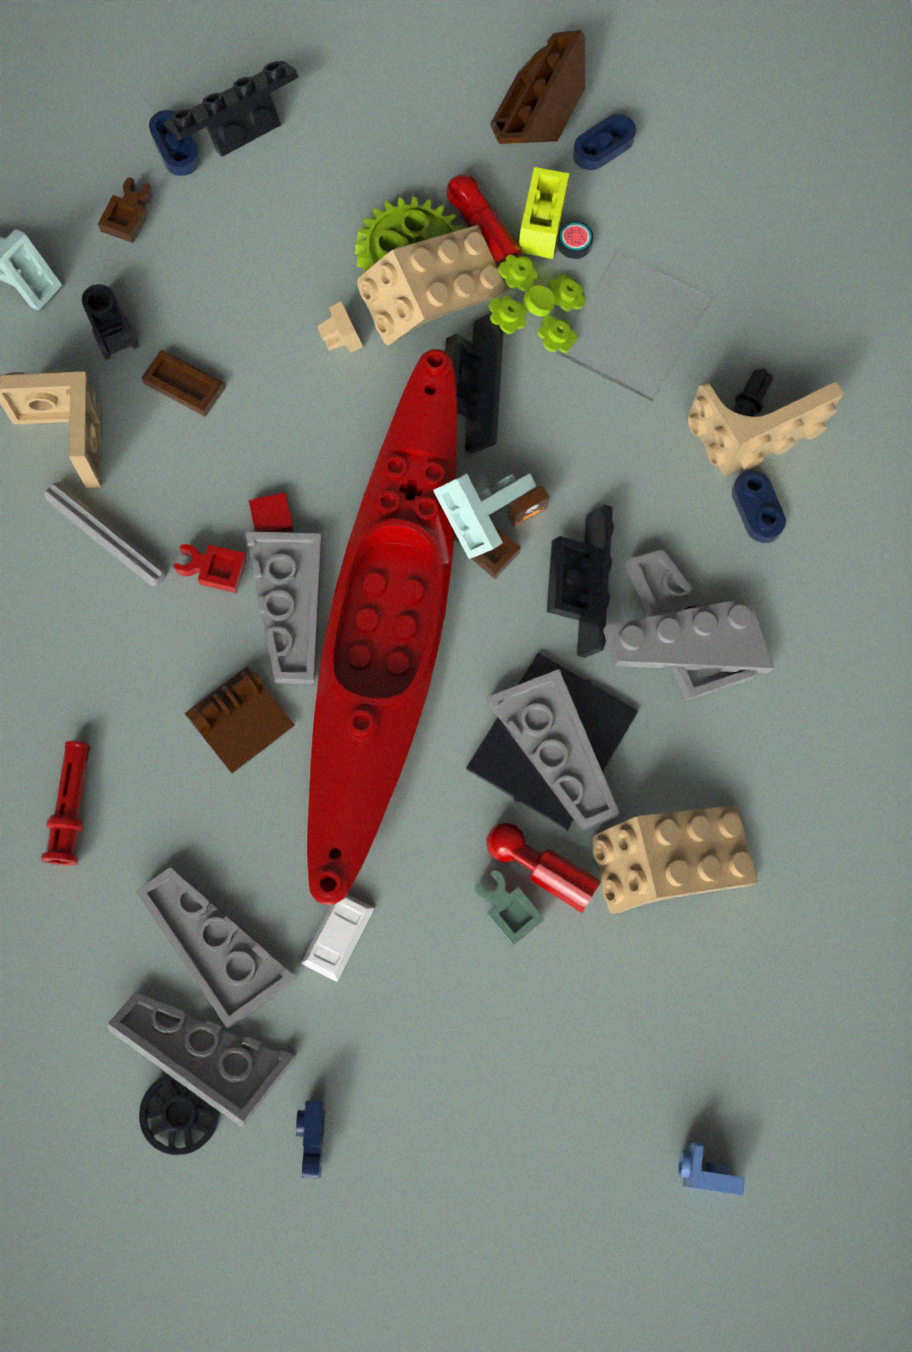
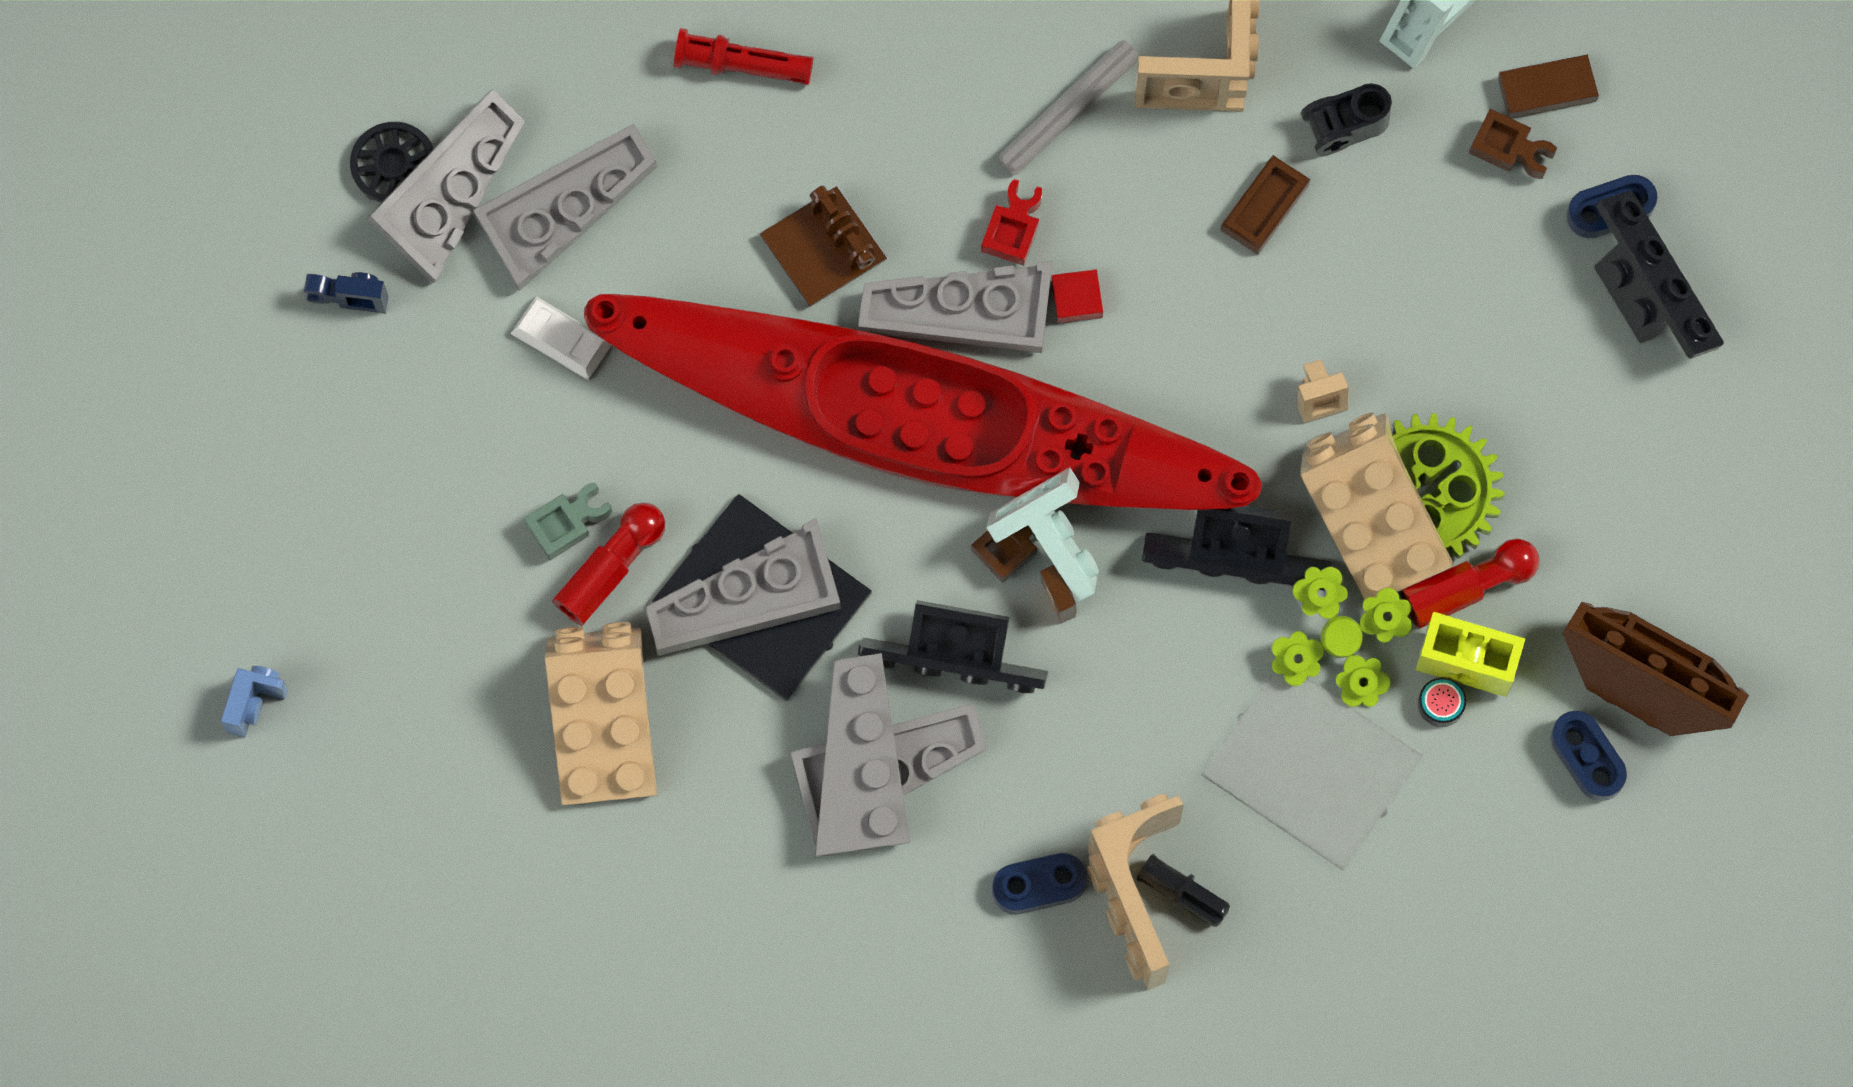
camera: 100 degrees right, 0 degrees up
(75, 191) = (1548, 86): none -> reddish brown tile

